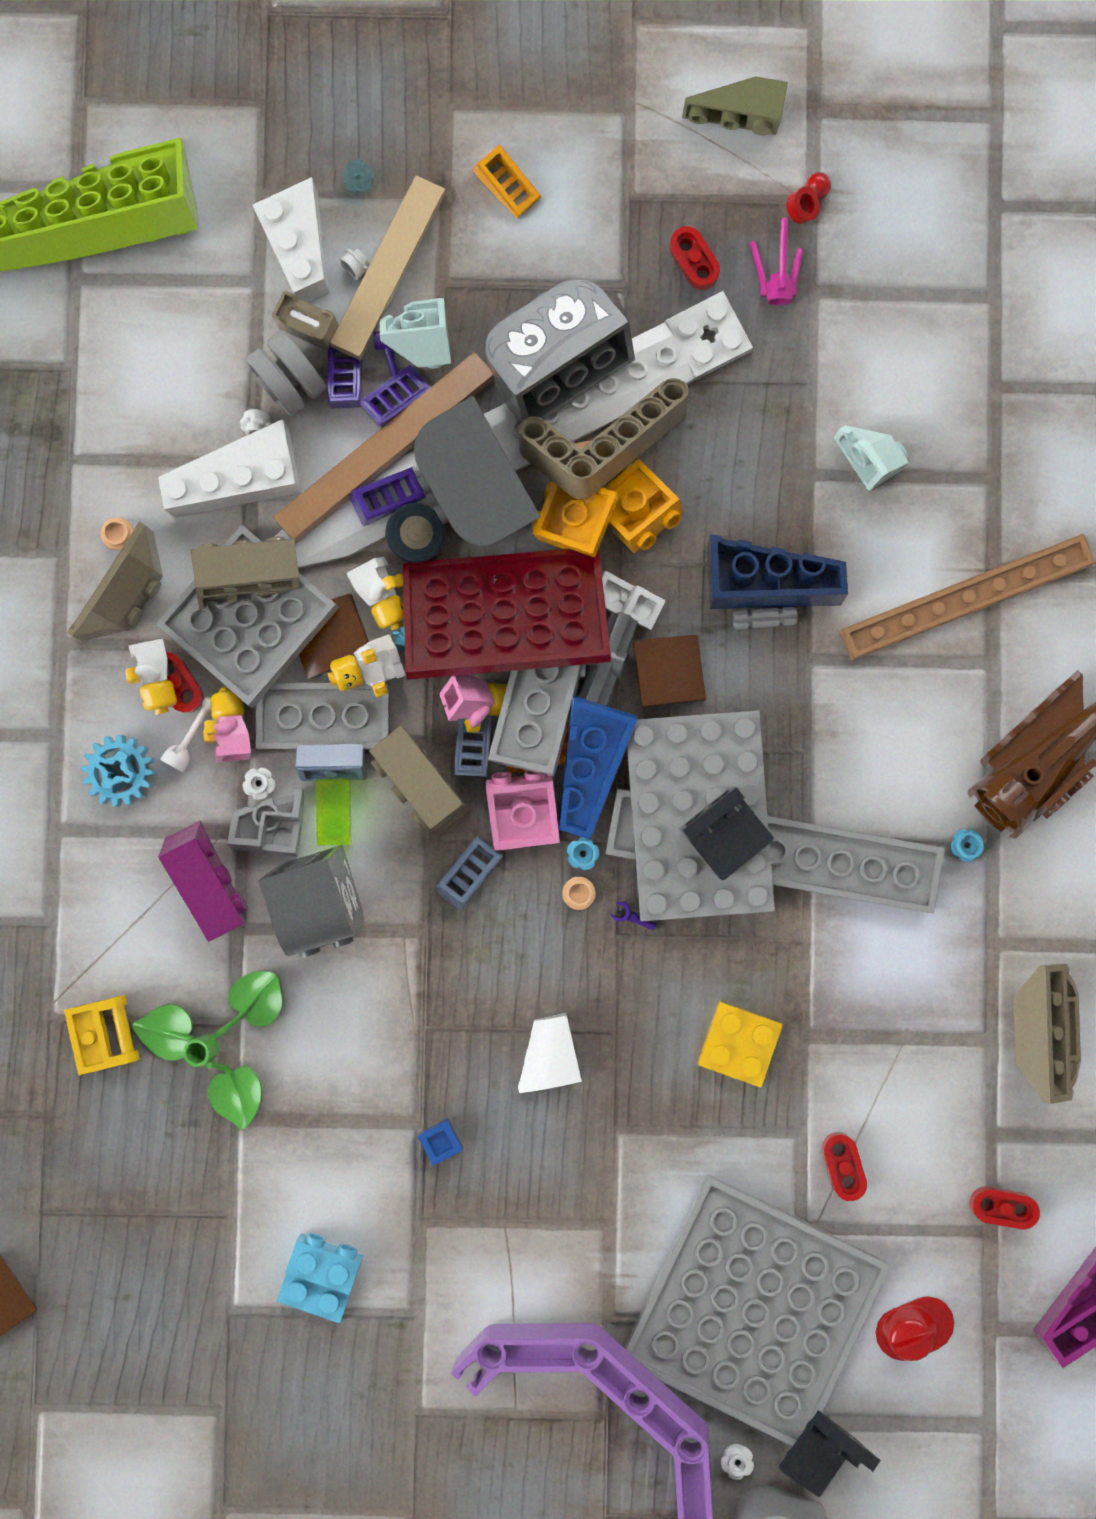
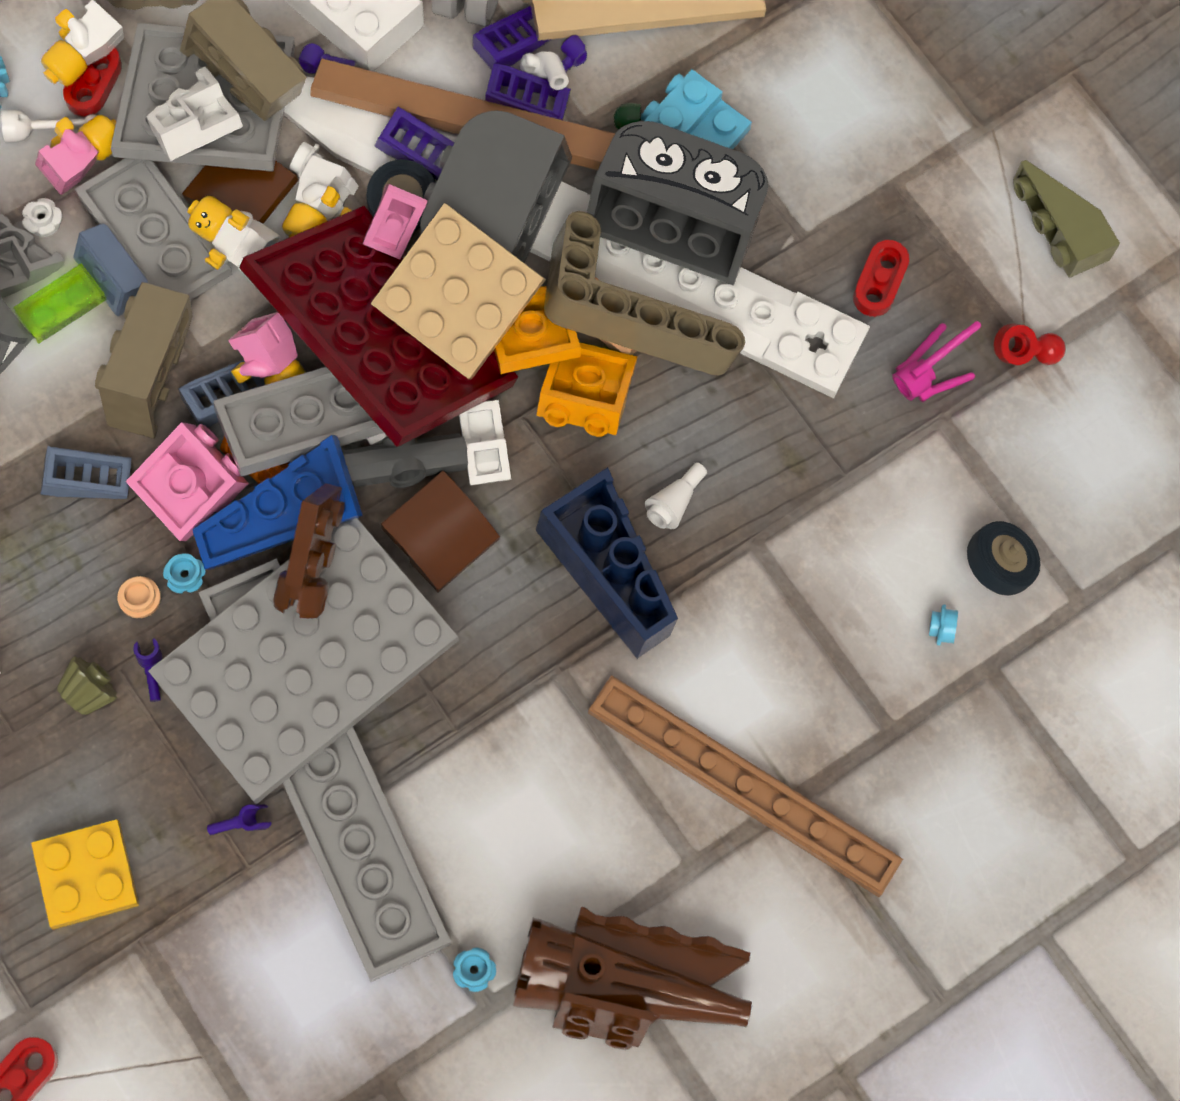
camera: 45 degrees right, 15 degrees down
(263, 521) = (312, 55): none -> dark purple hand
(265, 634) = (193, 117): none -> white slope
(340, 579) = (302, 157): none -> white plate
(383, 368) = (547, 66): none -> white arm
(419, 333) = (604, 76): light aqua slope -> none
(439, 549) = (394, 221): none -> bright pink slope
(461, 340) = (627, 114): none -> dark green hinge
(482, 171) = (822, 31): light orange slope -> none
(492, 295) = (697, 109): none -> medium azure plate
(527, 545) = (458, 291): none -> tan plate
(620, 966) = (86, 686): none -> olive piece
(665, 784) = (310, 554): none -> reddish brown plate
(727, 833) = (300, 681): black bracket -> none
(754, 511) = (669, 504): none -> white cone
(765, 618) = (566, 591): light grey axle -> none
(775, 923) = (245, 820): none -> dark purple hand
(872, 454) = (817, 583): light aqua slope -> none
(941, 324) = (1003, 558): none -> black wheel
(955, 395) = (944, 625): none -> medium azure plate

